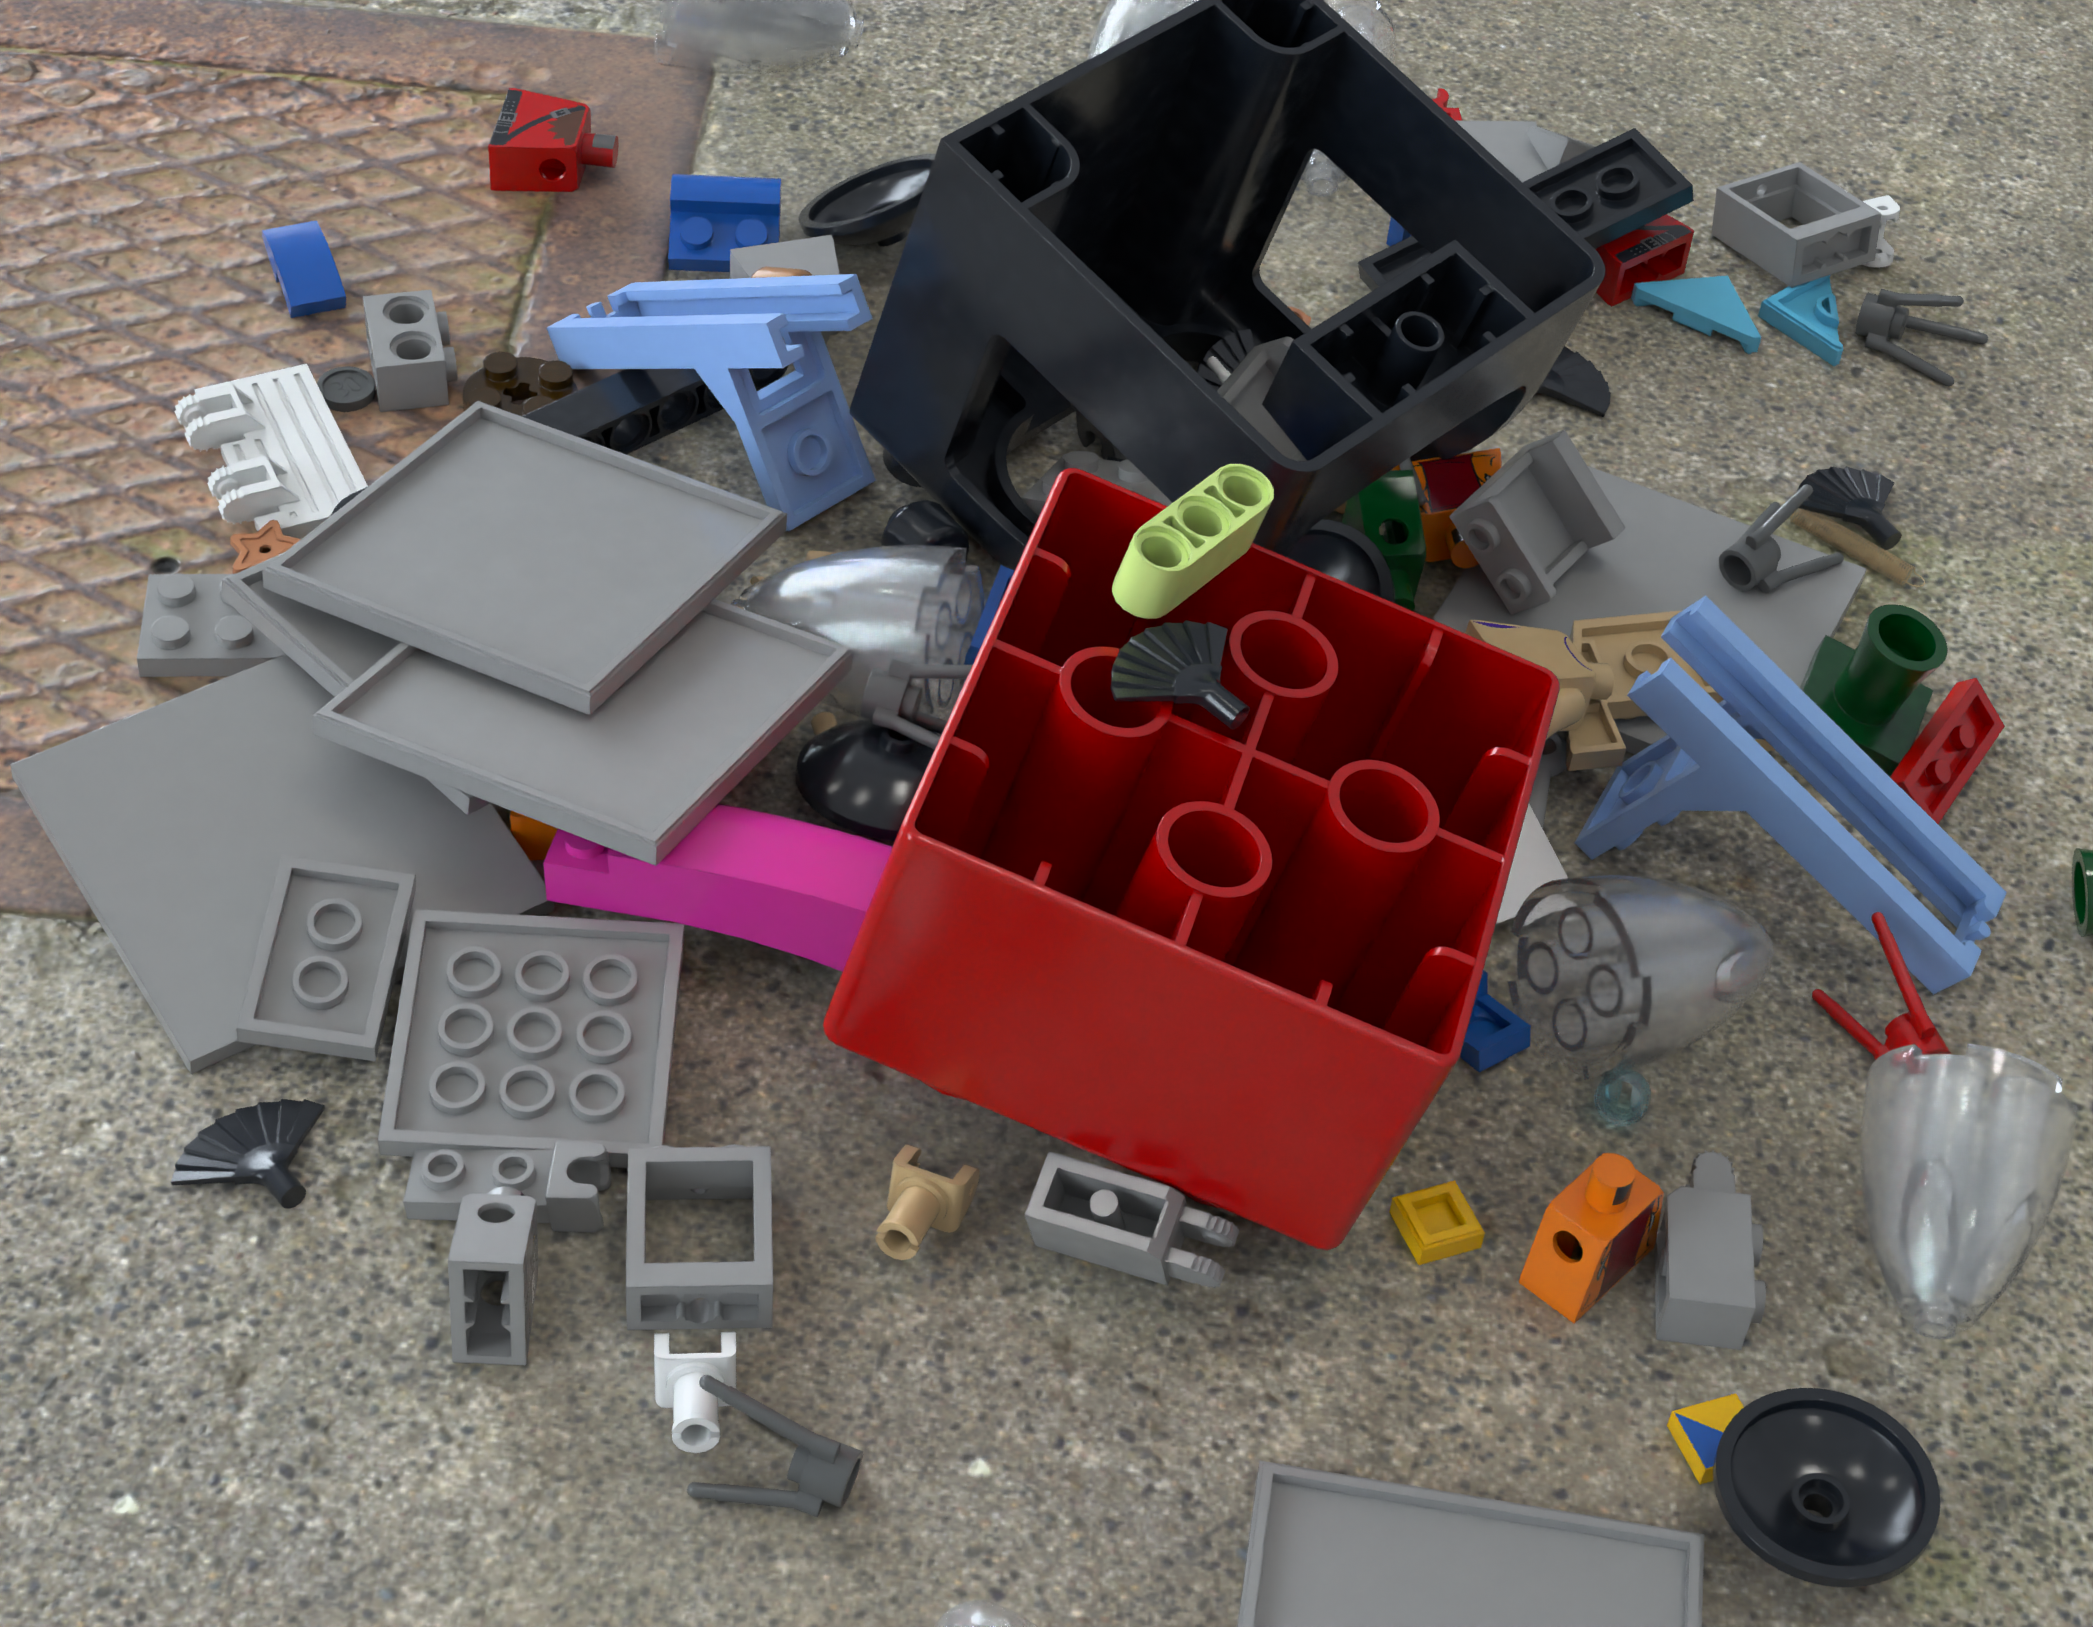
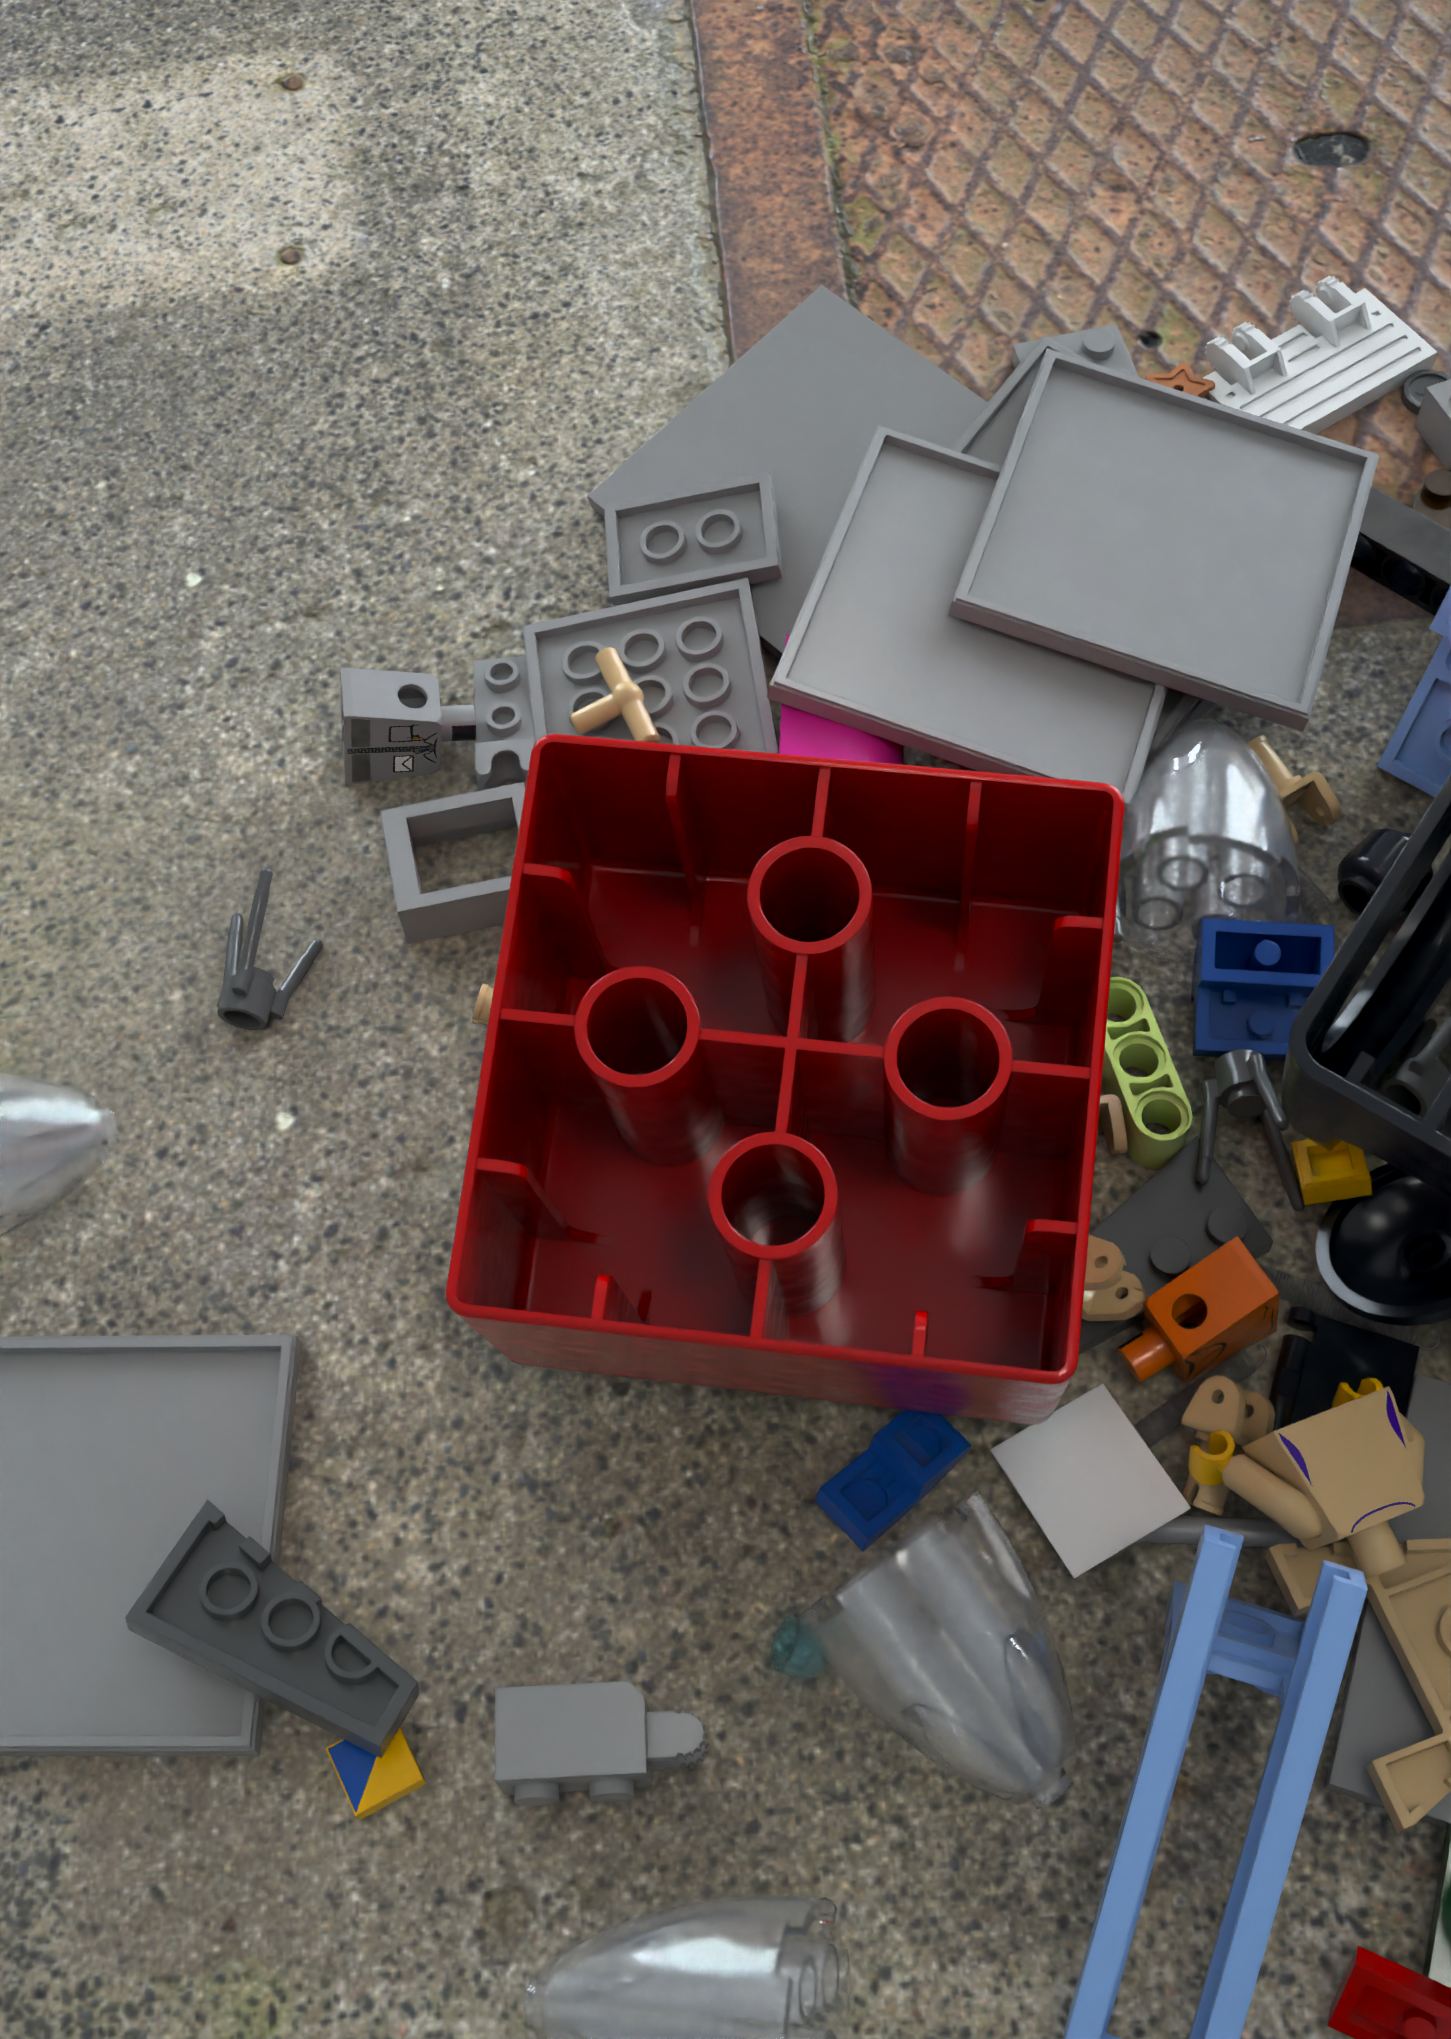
camera: 90 degrees right, 15 degrees up
(252, 1149) = (521, 560): black hand -> none
(546, 1041) = (624, 700): none -> tan piece
(678, 1388) = (315, 891): white piece -> none
(1178, 666) = (861, 944): black hand -> none
(1192, 541) = (1016, 885): yellowish green beam -> none
(1436, 1222) = (605, 1472): yellow tile -> none
(1599, 1493) = (257, 1627): none -> dark grey wing
(1614, 1220) = (583, 1614): orange torso -> none
(1832, 1458) = (244, 1834): black dish -> none
(1905, 1029) = (953, 1984): red plant -> none

